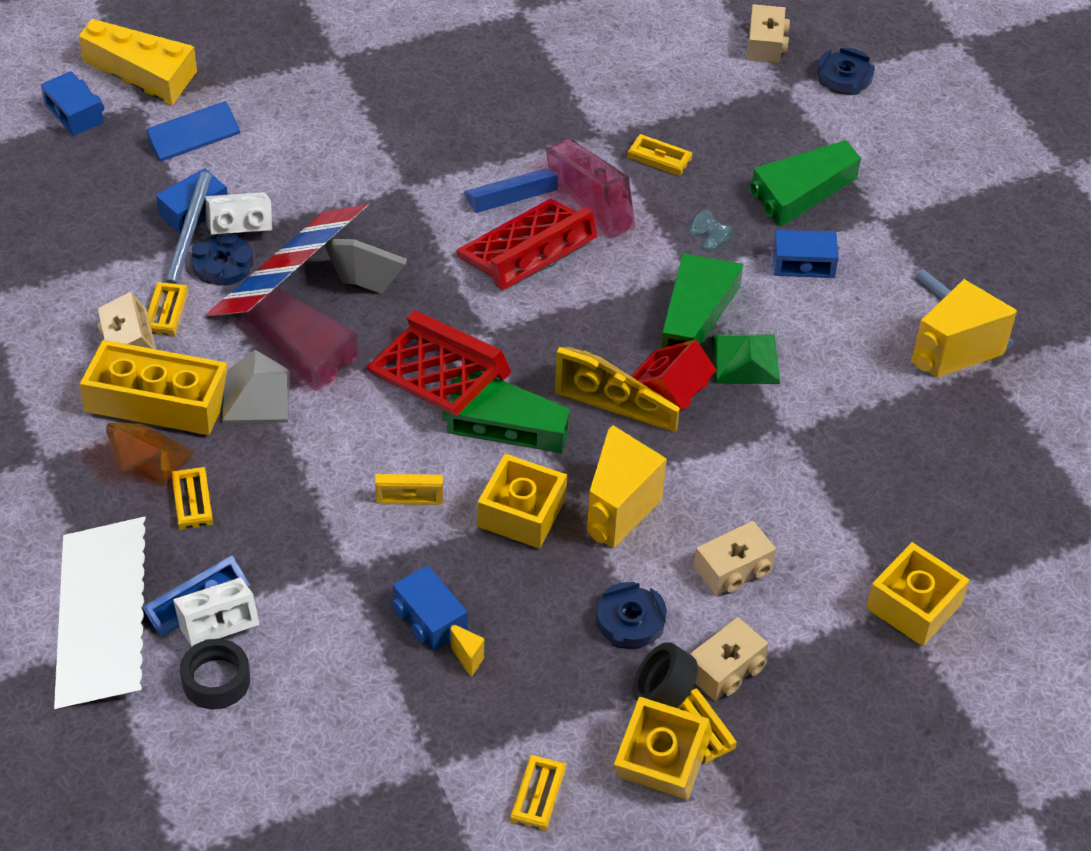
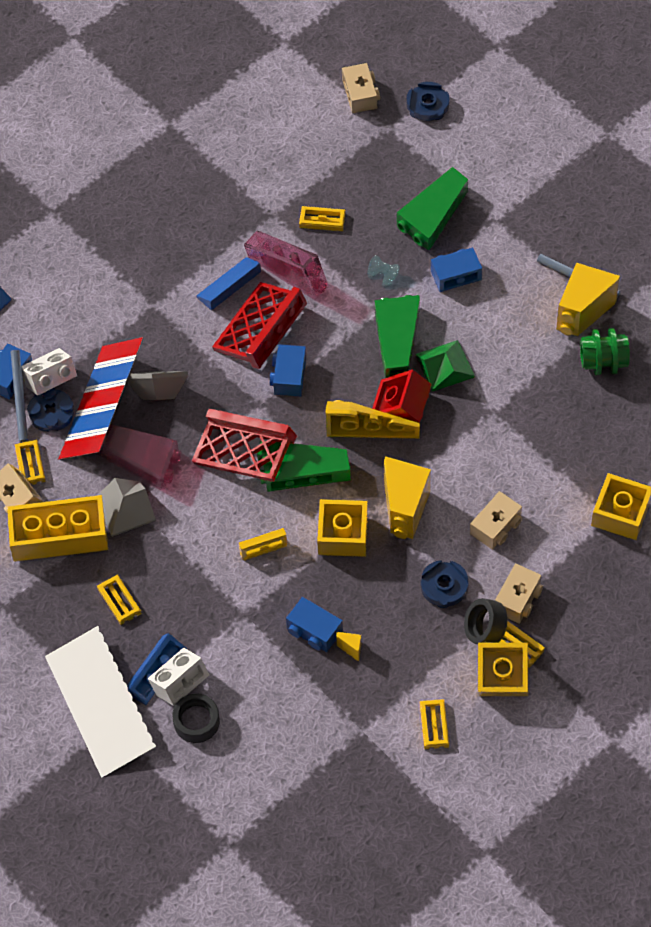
camera: 15 degrees left, 10 degrees up
(146, 451) = (74, 577): clear orange slope -> none
(539, 301) = (289, 370): none -> blue brick
(965, 399) = (604, 351): none -> green piece

